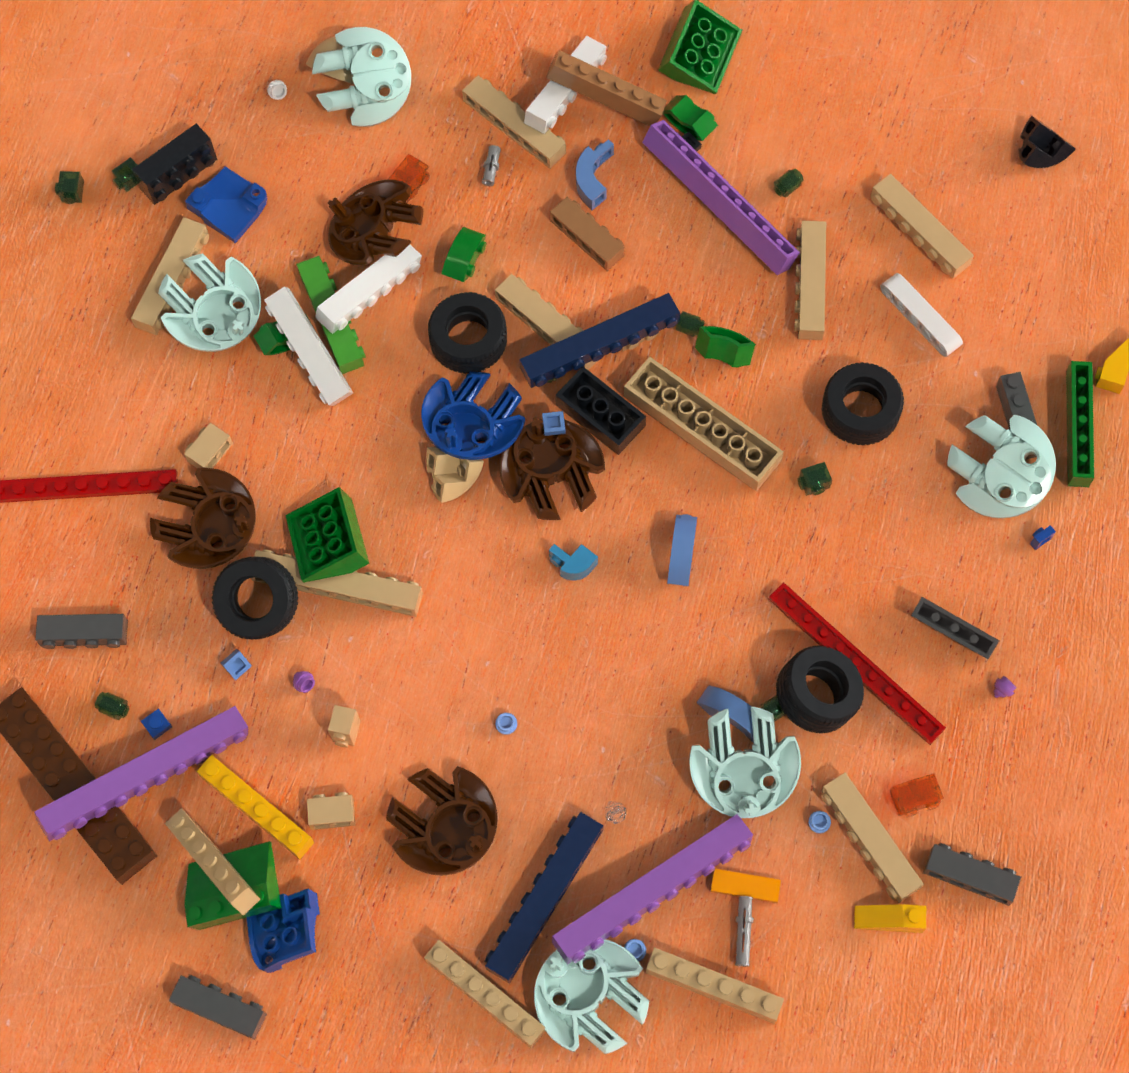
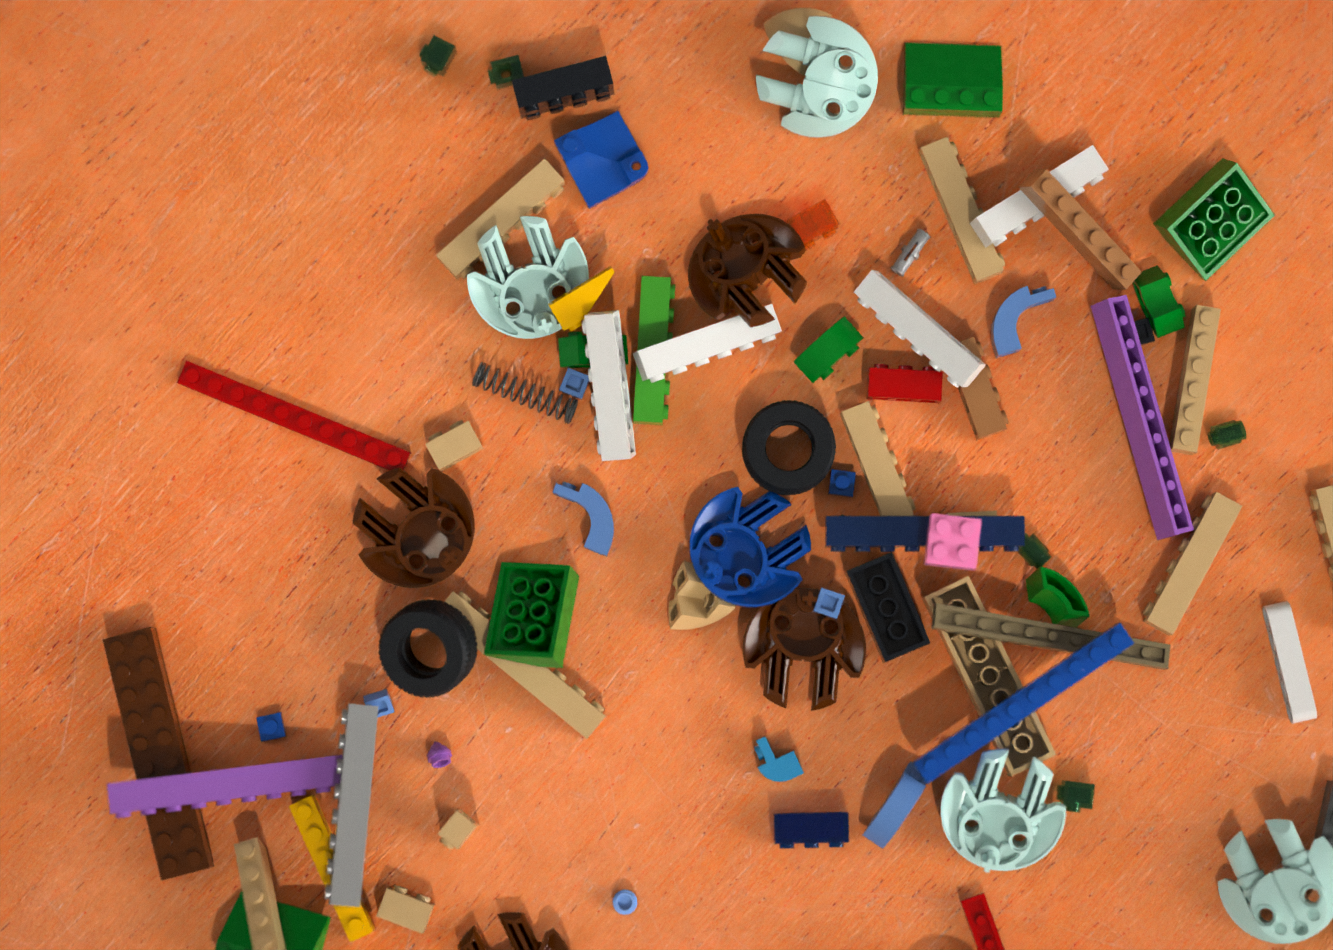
camera: 25 degrees right, 15 degrees up
(81, 630) = (236, 588): dark grey brick -> none
(112, 705) = (234, 687): clear green brick -> none
(249, 744) = (353, 805): none -> light grey brick
(252, 305) = (577, 302): none -> yellow slope
(277, 89) = (717, 41): white plate -> none
(282, 364) = (574, 383): none -> medium blue plate
(286, 381) = (477, 380): none -> dark grey piece
(341, 443) = (602, 525): none -> medium blue arch
(464, 43) = (953, 80): none -> green slope
(521, 343) = (842, 483): none -> blue plate
(523, 207) = (919, 328): none -> white brick
(533, 254) = (904, 384): none -> red brick
(624, 330) = (952, 542): none -> bright pink brick
(624, 598) = (811, 829): none -> clear blue brick
(733, 371) = (1040, 634): none -> dark tan plate
(737, 423) = (1022, 703): none -> blue brick
(744, 156) = (1194, 379): none -> tan brick
(766, 518) = (1001, 816): none -> light aqua piece
(869, 379) = (1204, 737): black tyre -> none

